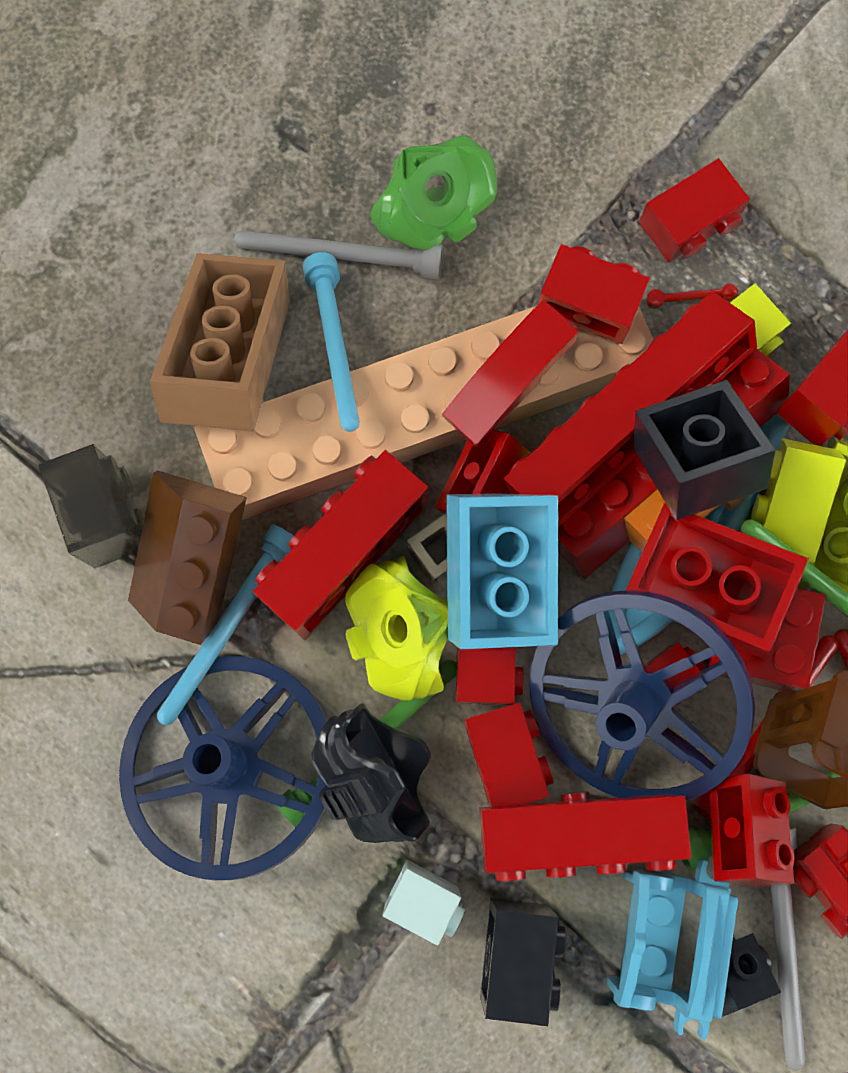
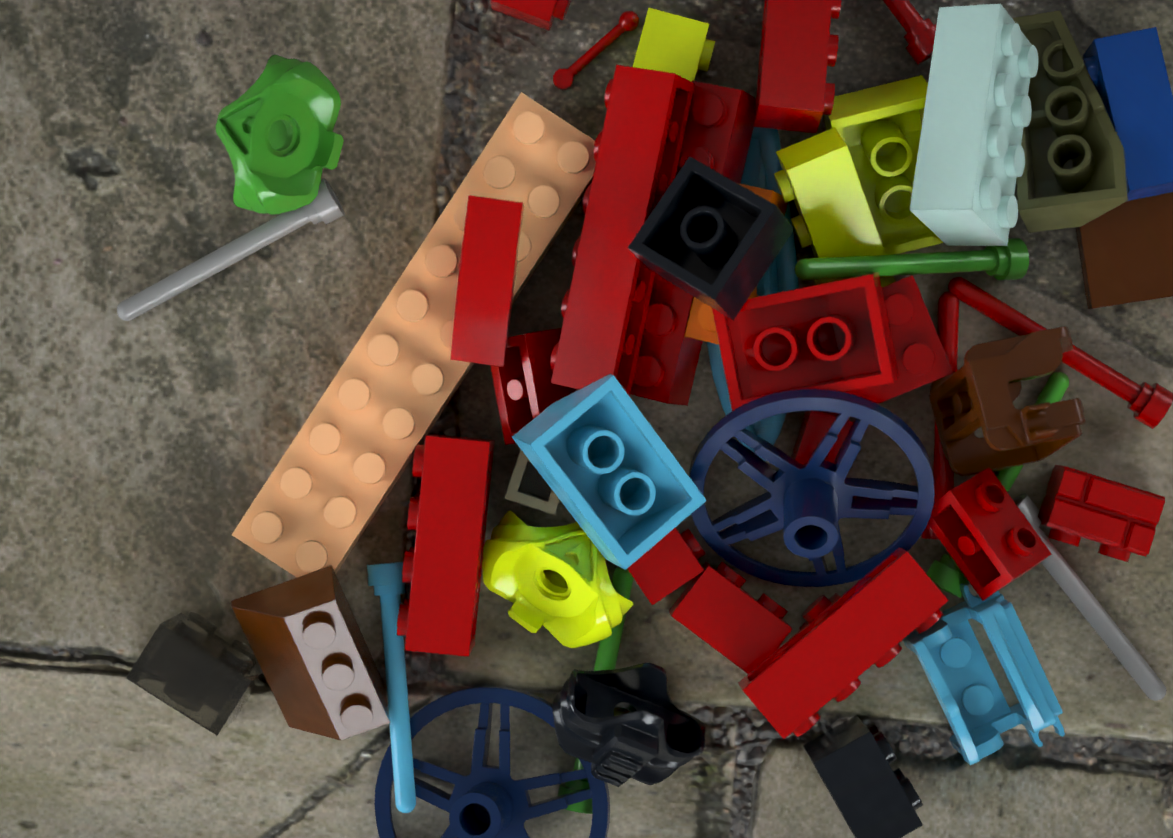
camera: 35 degrees left, 10 degrees up
(222, 342) = (197, 437): medium nougat brick -> none
(322, 276) = (233, 295): medium azure piece -> none
(424, 904) = (749, 797): light aqua brick -> none
(594, 292) = (505, 144): red brick -> none
(748, 975) = (1063, 655): black brick -> none

